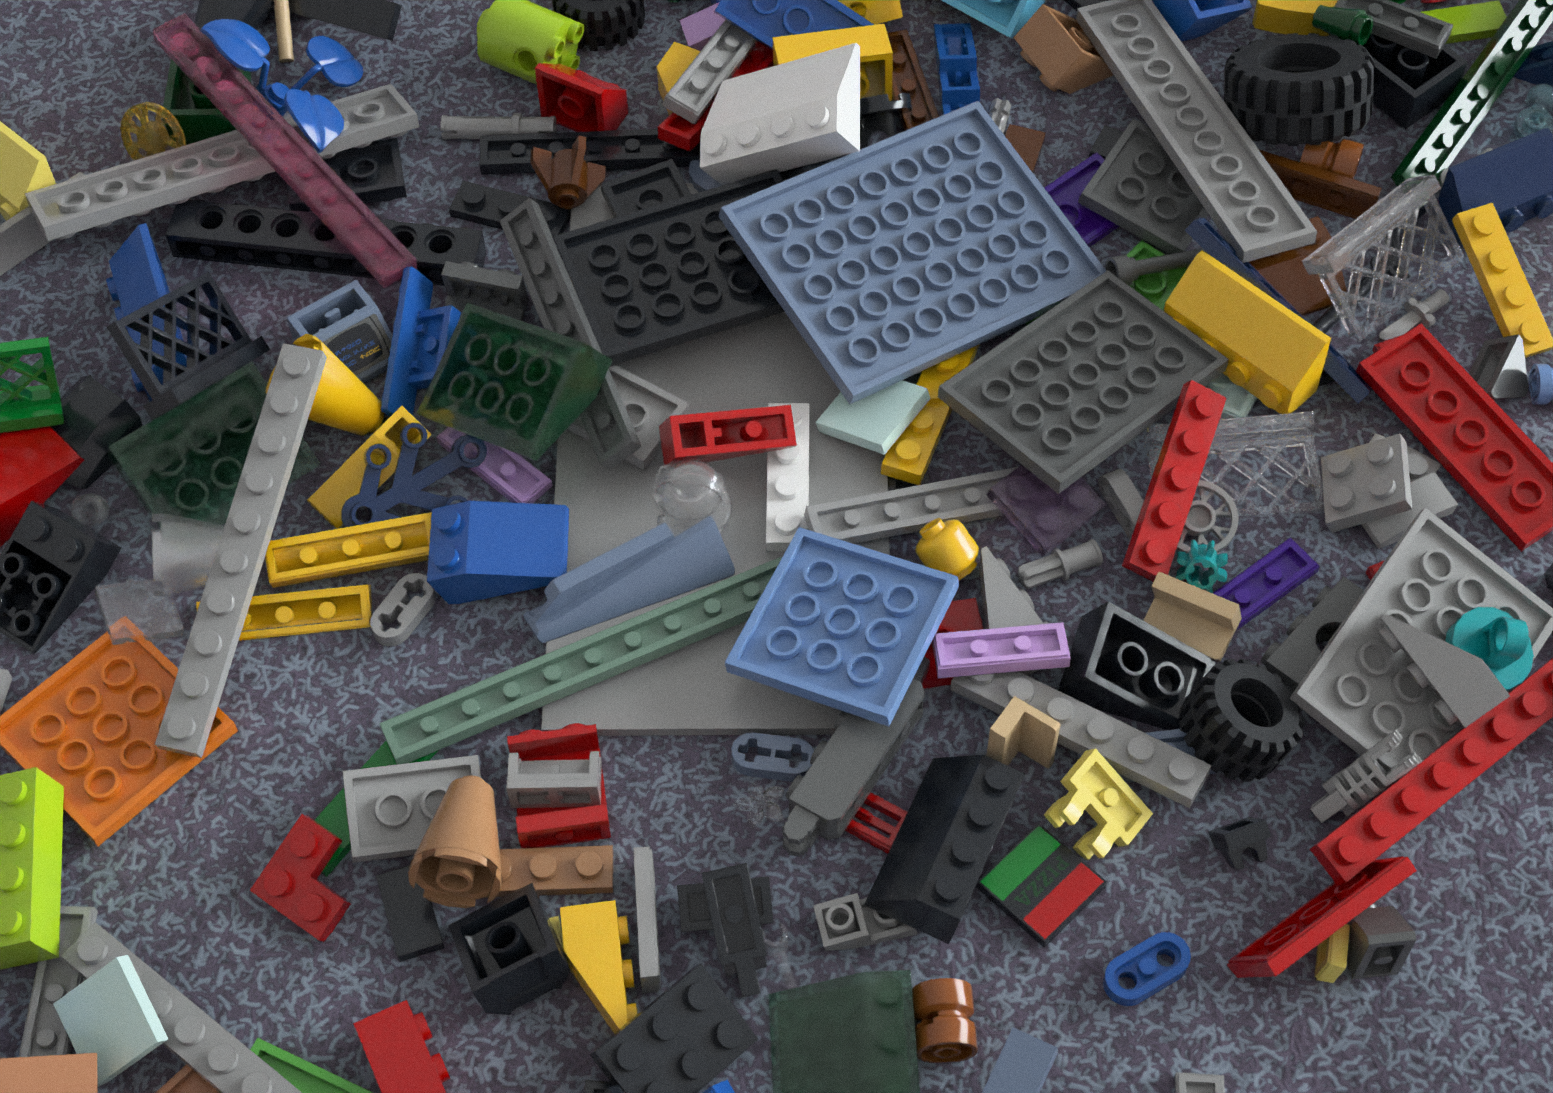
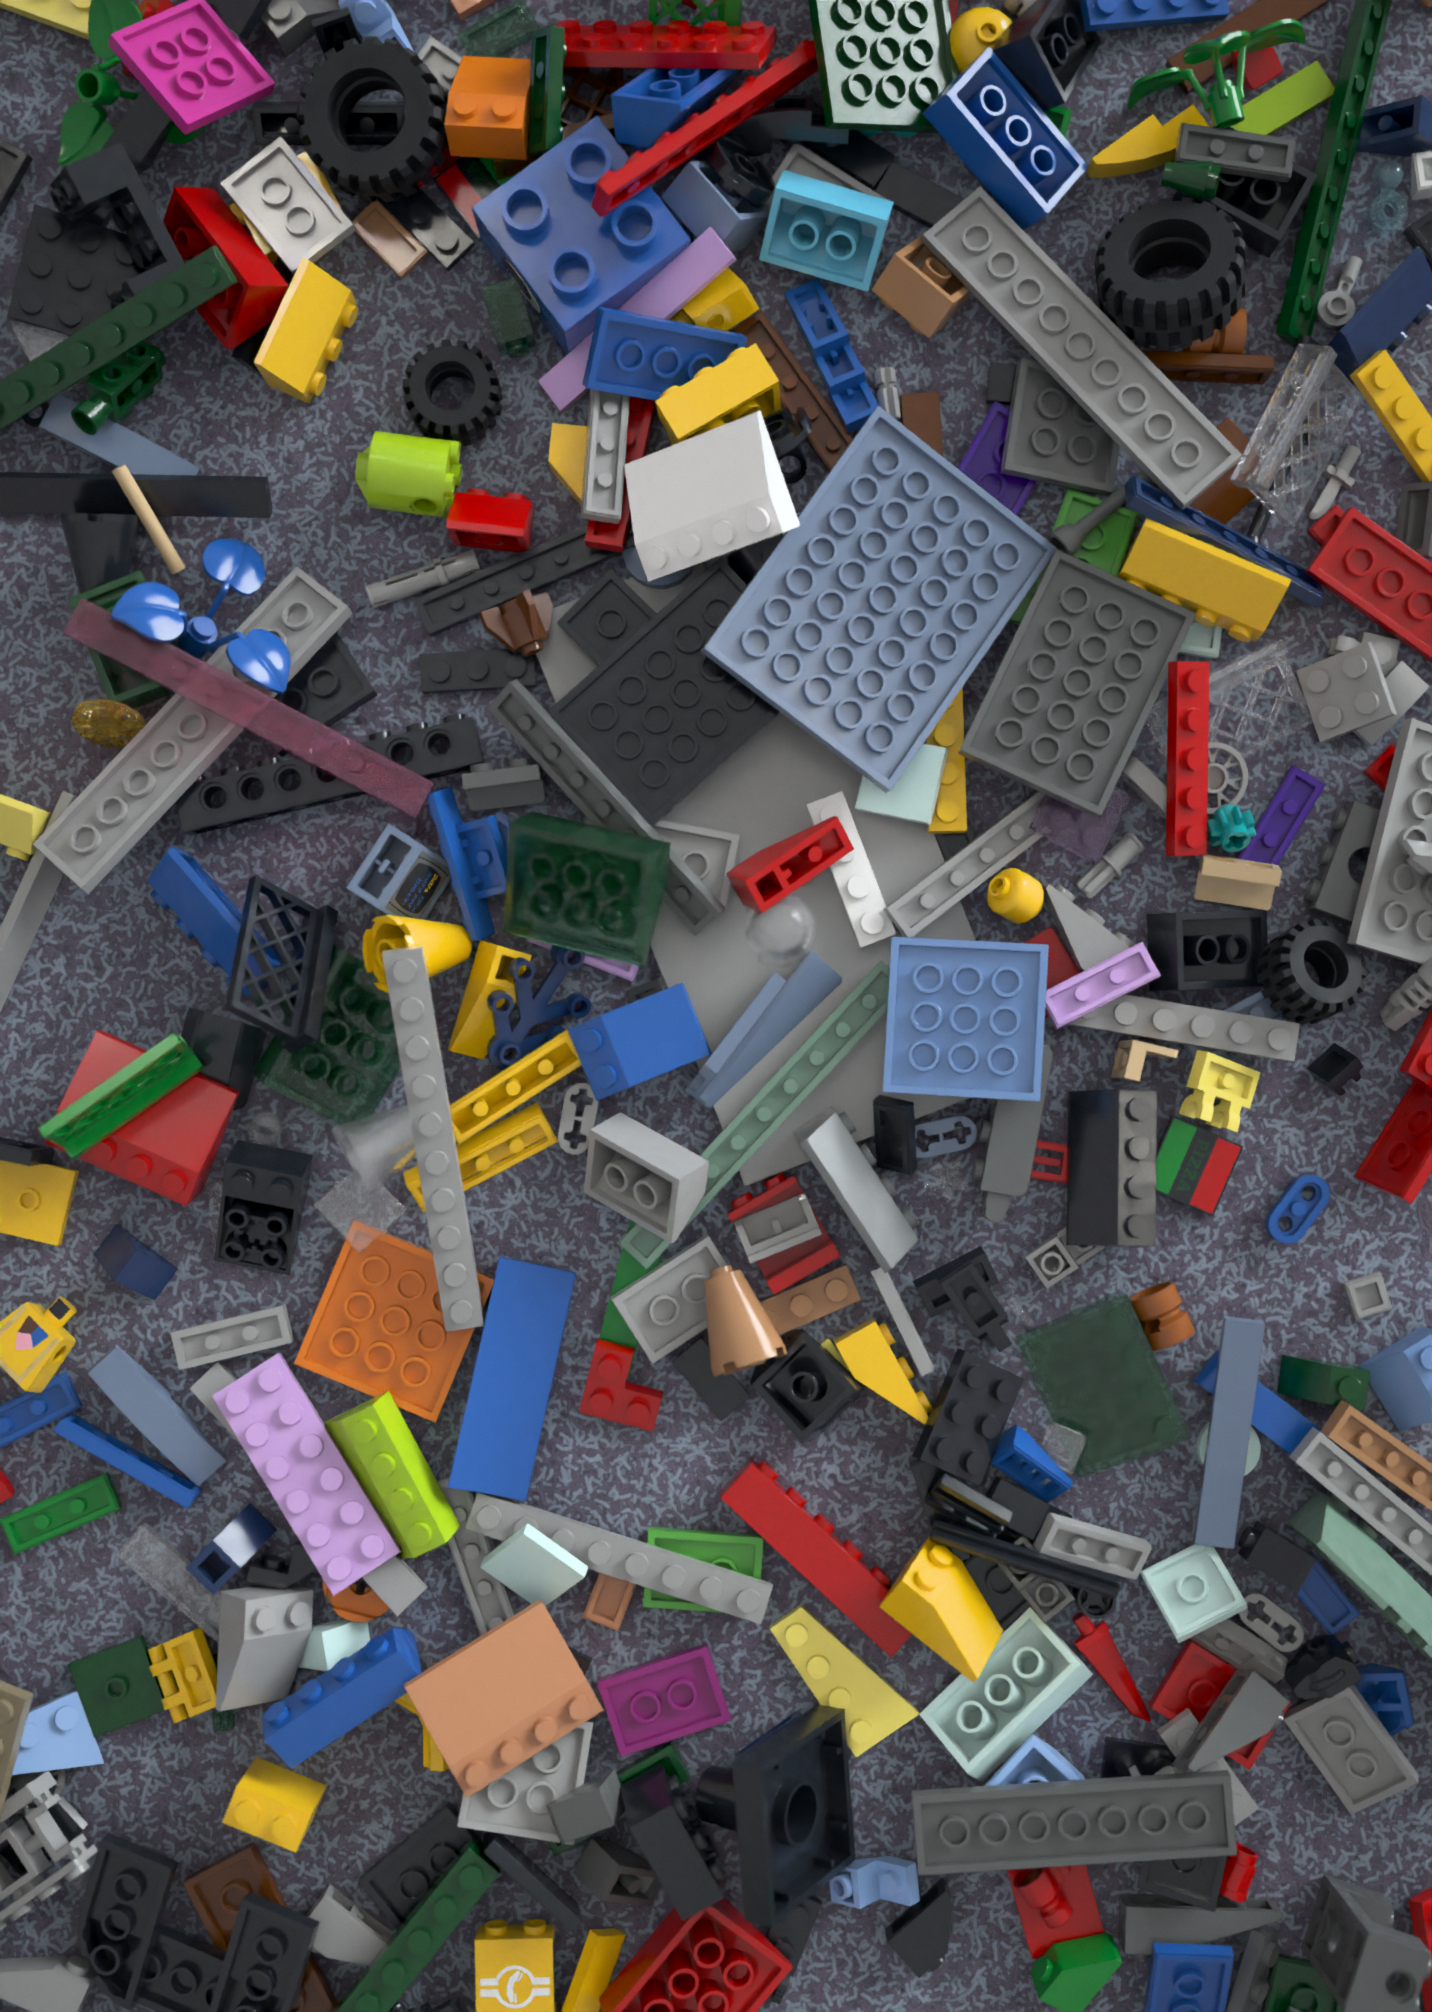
camera: 25 degrees left, 30 degrees up
(193, 827) = (512, 1379): none -> blue arch
(438, 665) = (644, 1175): none -> light grey slope
(658, 757) = (857, 1187): none -> slope
(722, 725) = (895, 1134): none -> black plate

